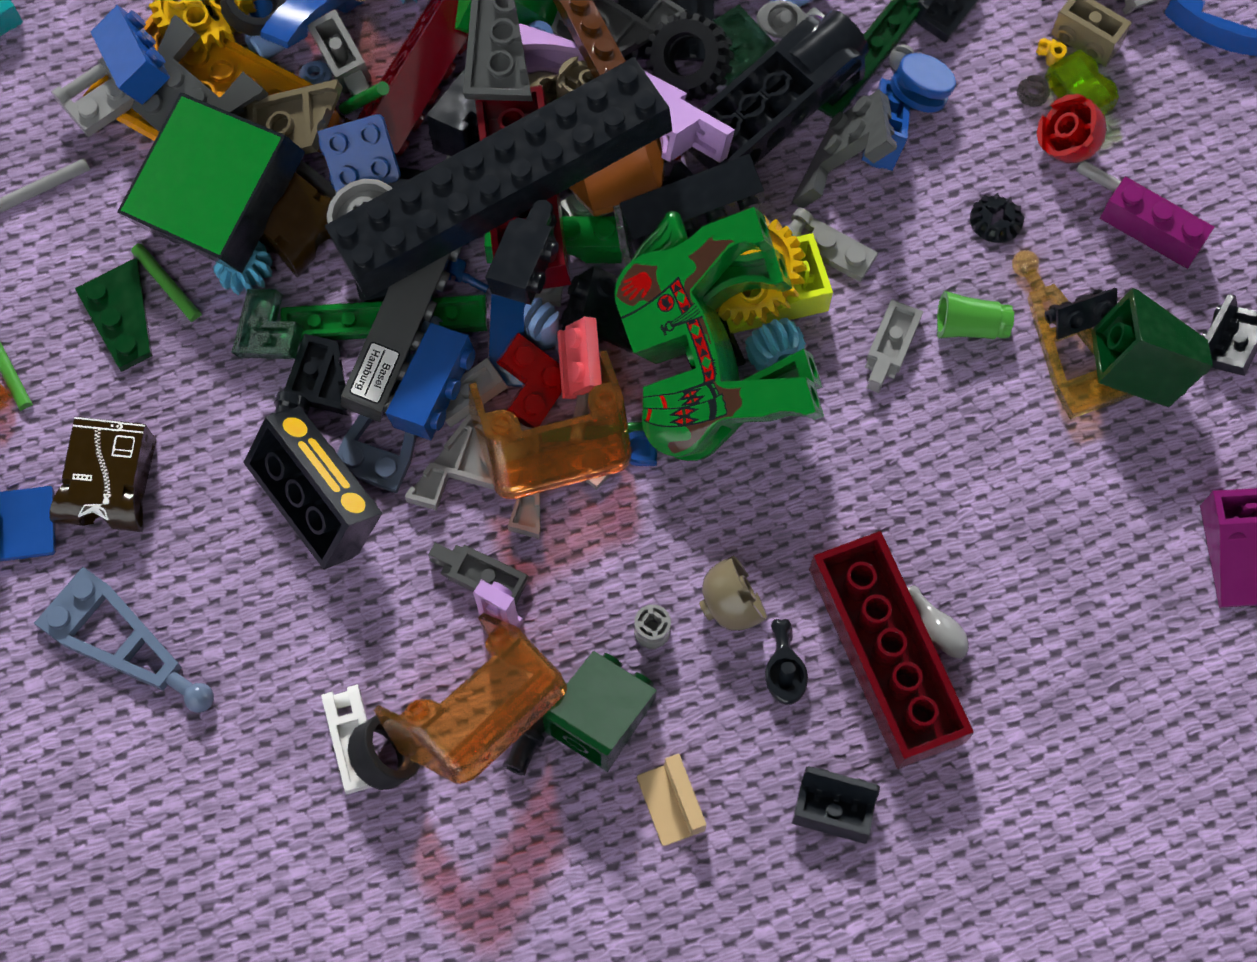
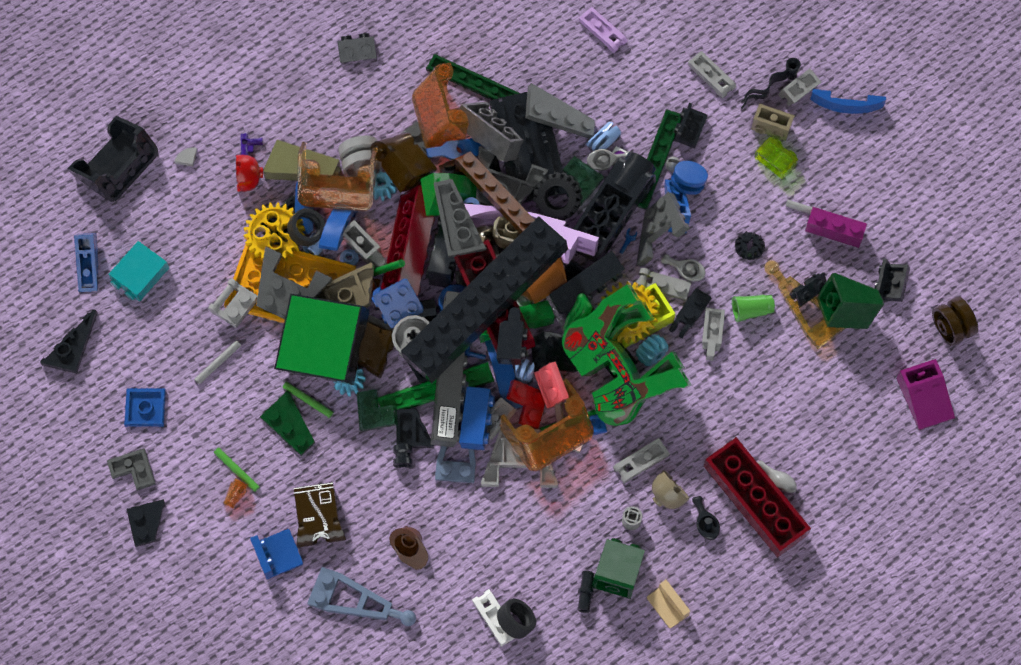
camera: 15 degrees left, 0 degrees up
(130, 54) = (248, 275): blue brick -> none
(236, 562) = (409, 547): none -> reddish brown piece
(312, 487) = (432, 492): black brick -> none
(468, 567) = (533, 514): dark grey hinge -> none
(484, 712) = (565, 585): clear orange windscreen -> none
(497, 602) = (552, 529): lavender plate -> none
(701, 530) = (641, 460): none -> light grey plate
(793, 157) = (629, 238): none -> blue hand
(836, 804) = (751, 583): black bracket -> none
(862, 301) = (691, 311): none -> black hinge
(878, 229) = (688, 269): none -> light grey piece
(1036, 83) = (750, 160): clear smoke plate -> none
(1052, 50) = (754, 139): yellow arm -> none
(1072, 129) = (777, 185): red cylinder -> none

